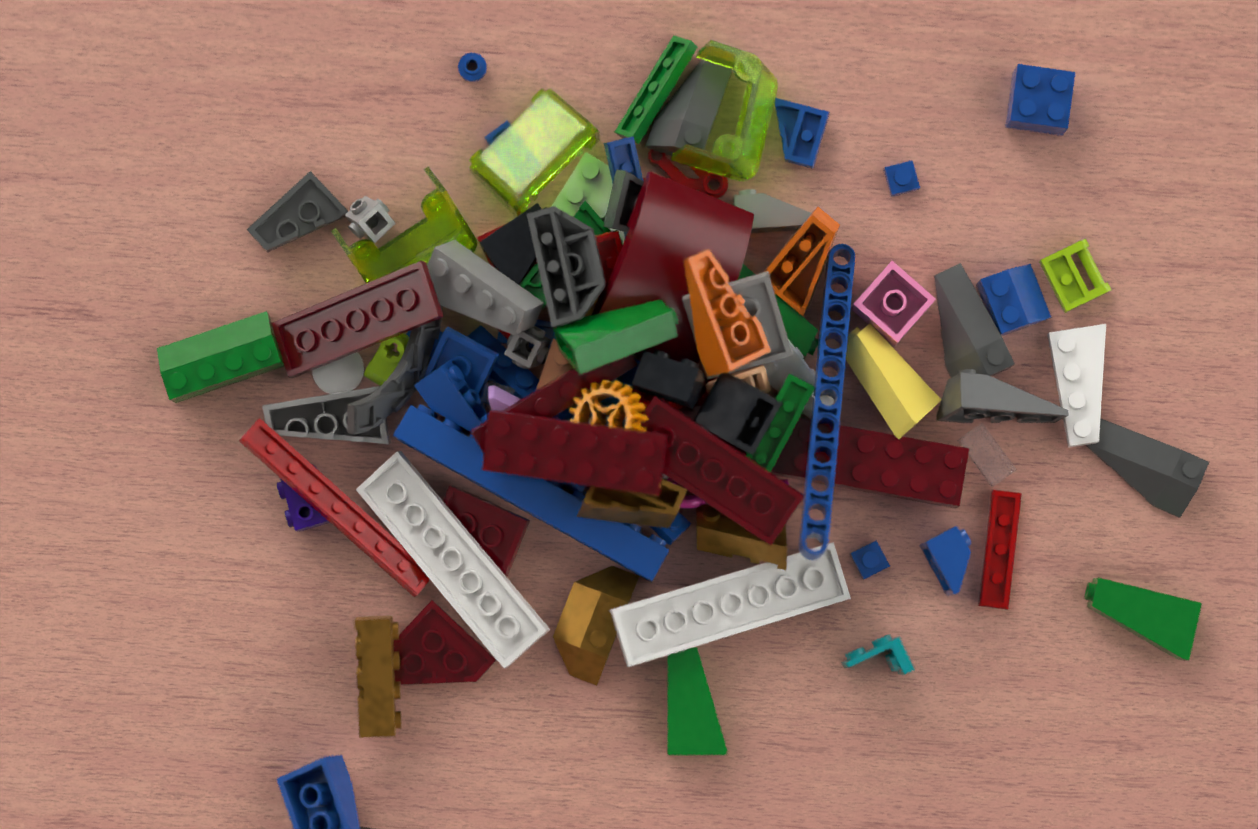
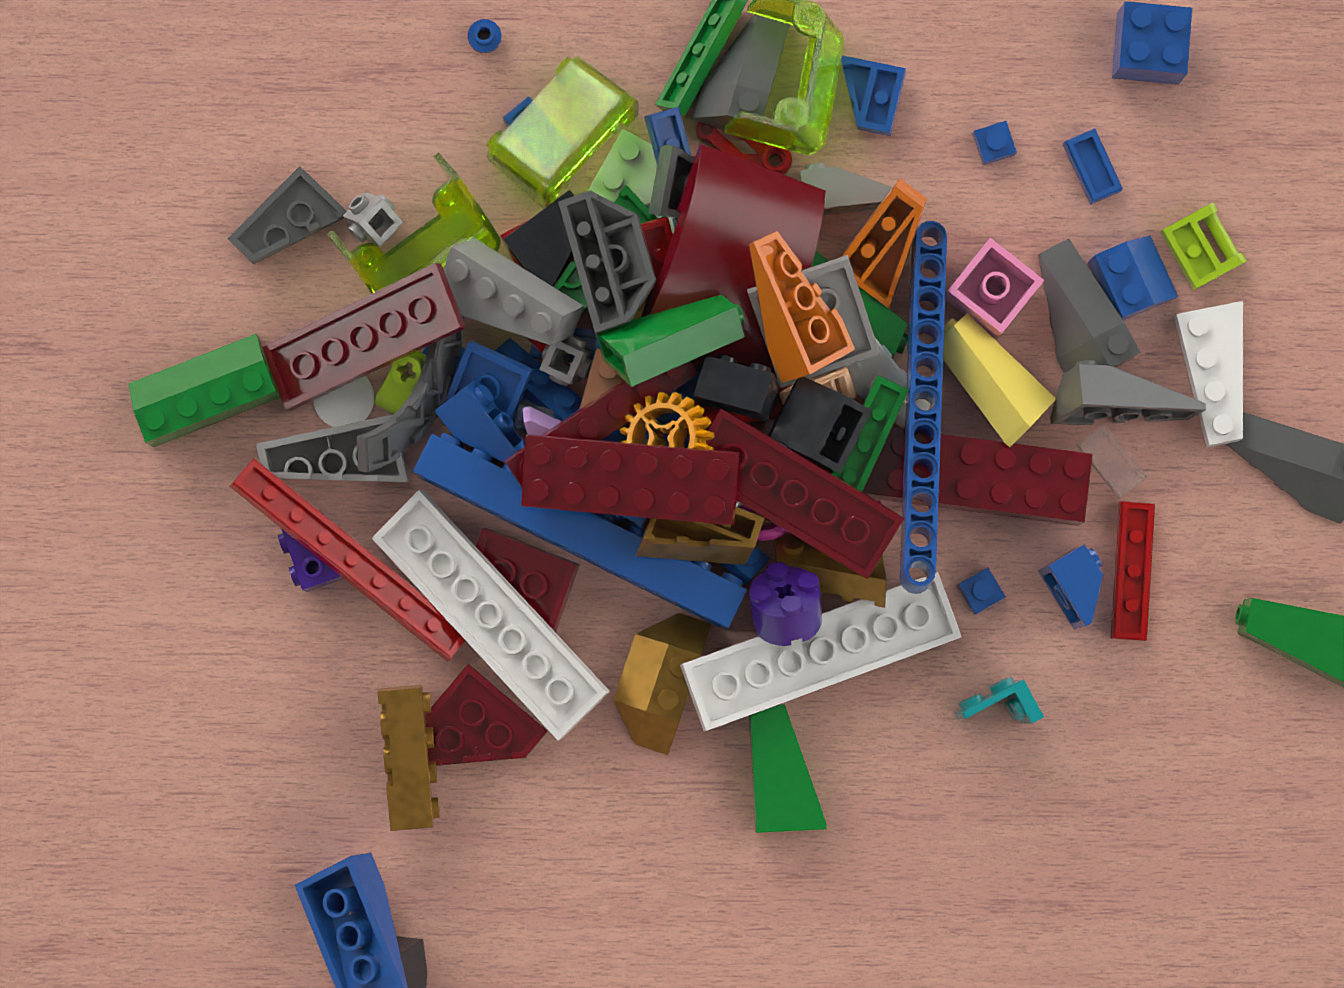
camera: 10 degrees left, 0 degrees up
(701, 563) = (785, 604): none -> dark purple brick
(984, 202) = (1092, 166): none -> blue tile

